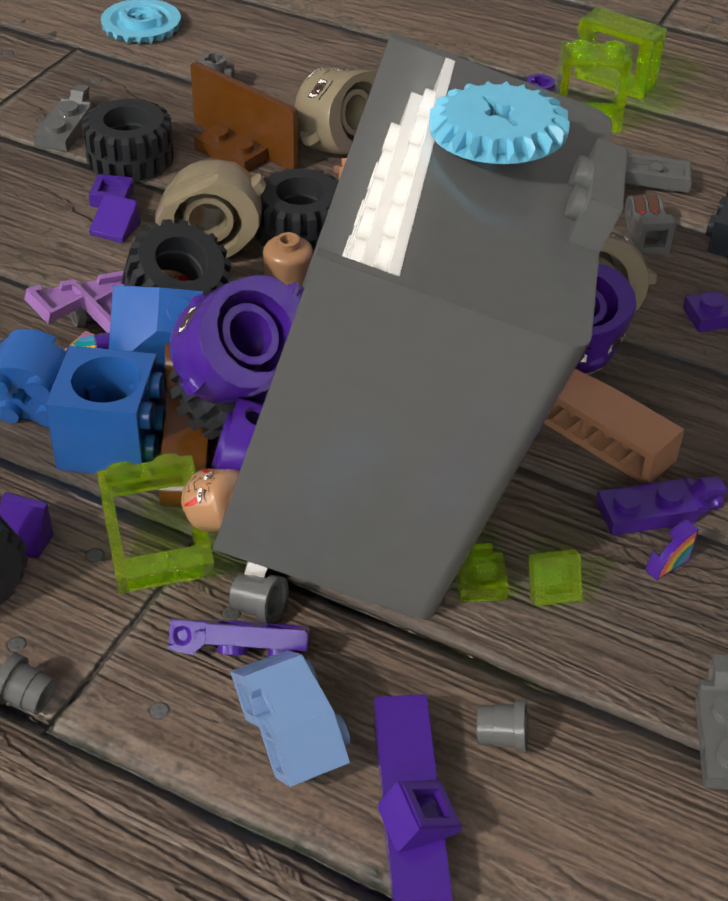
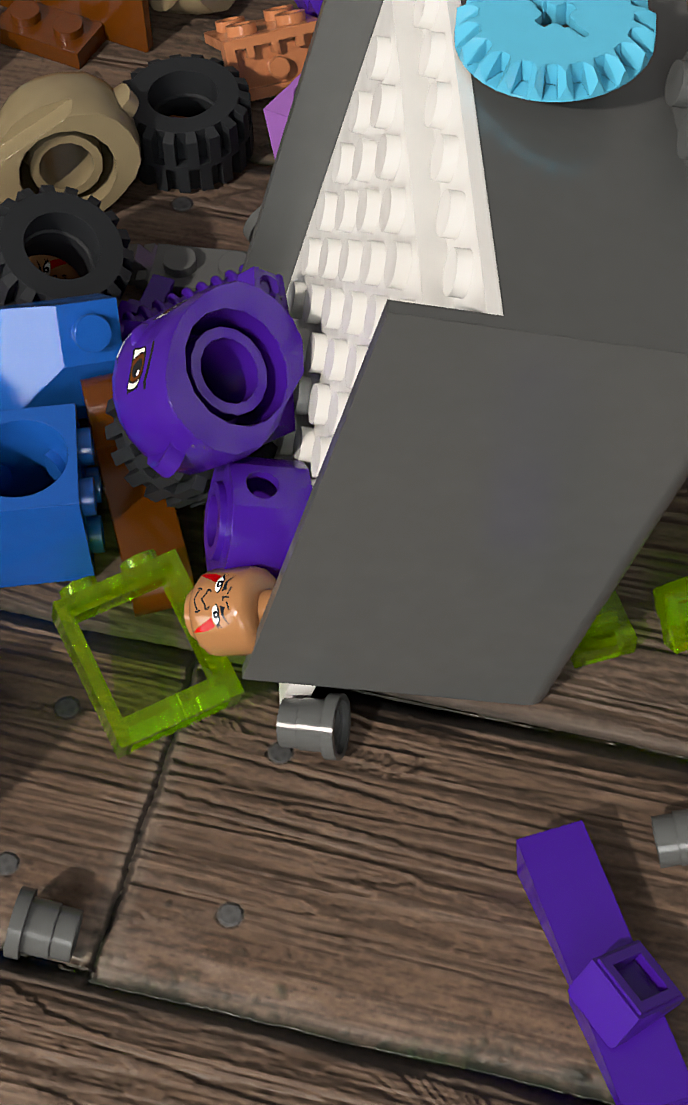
camera: 10 degrees left, 10 degrees up
(236, 636) = (305, 788): hinge -> none
(287, 258) = (194, 205): medium nougat head -> none
(293, 717) = (420, 889): medium blue brick -> none

